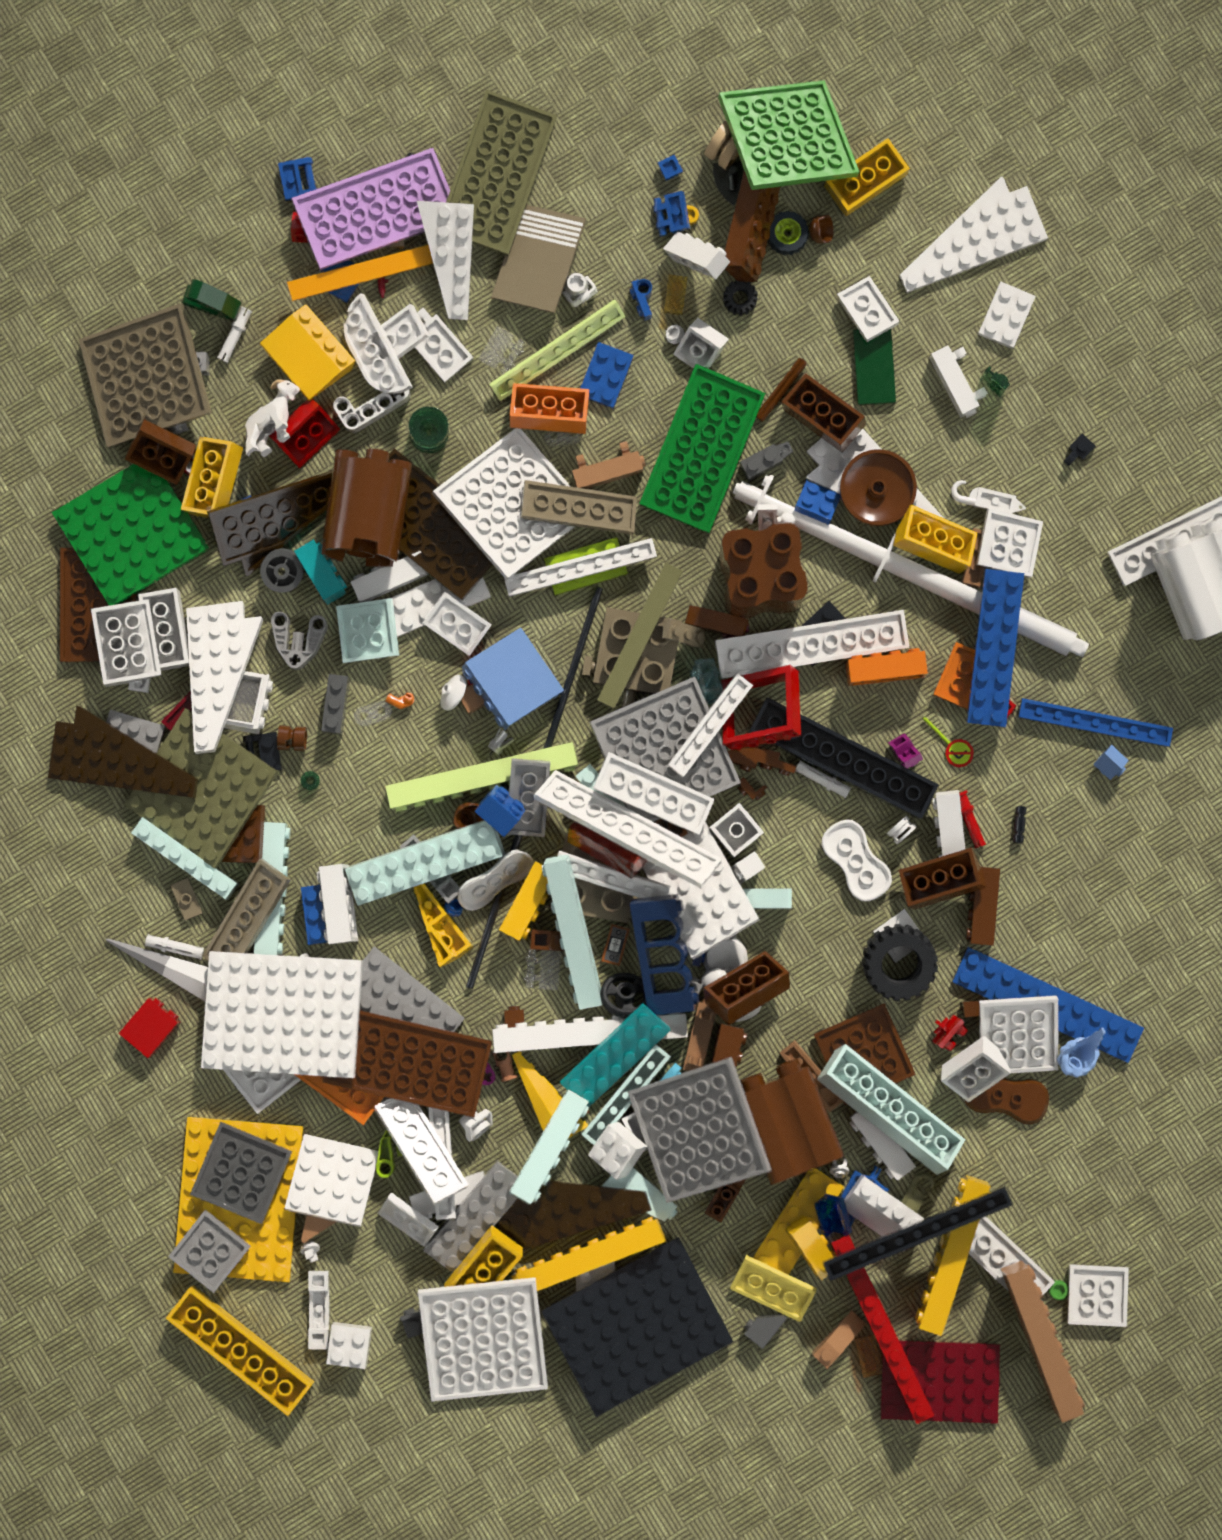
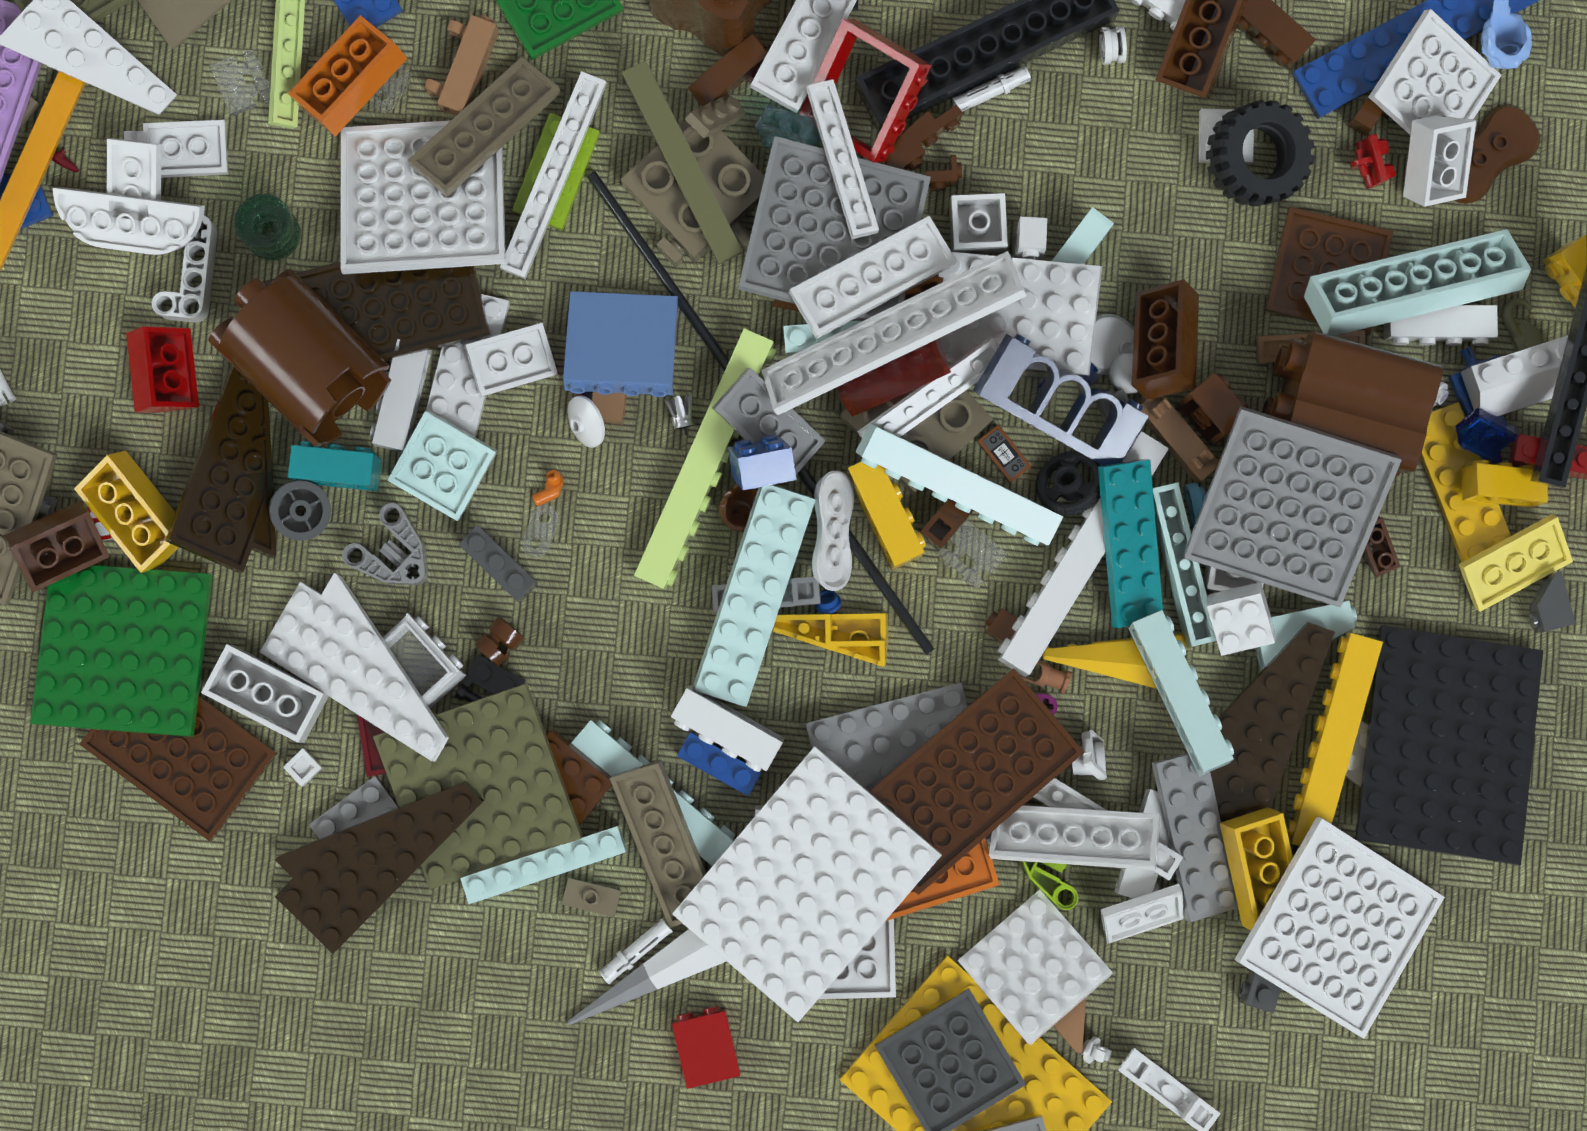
camera: 65 degrees left, 0 degrees up
(126, 642) = (245, 747): white slope -> none
(270, 419) = (116, 394): white animal -> none
(305, 776) = (553, 657): clear green plate -> none
(308, 352) = (74, 296): yellow slope -> none
(349, 1345) = (1234, 1085): white brick -> none
(848, 847) = (1130, 120): white plate -> none

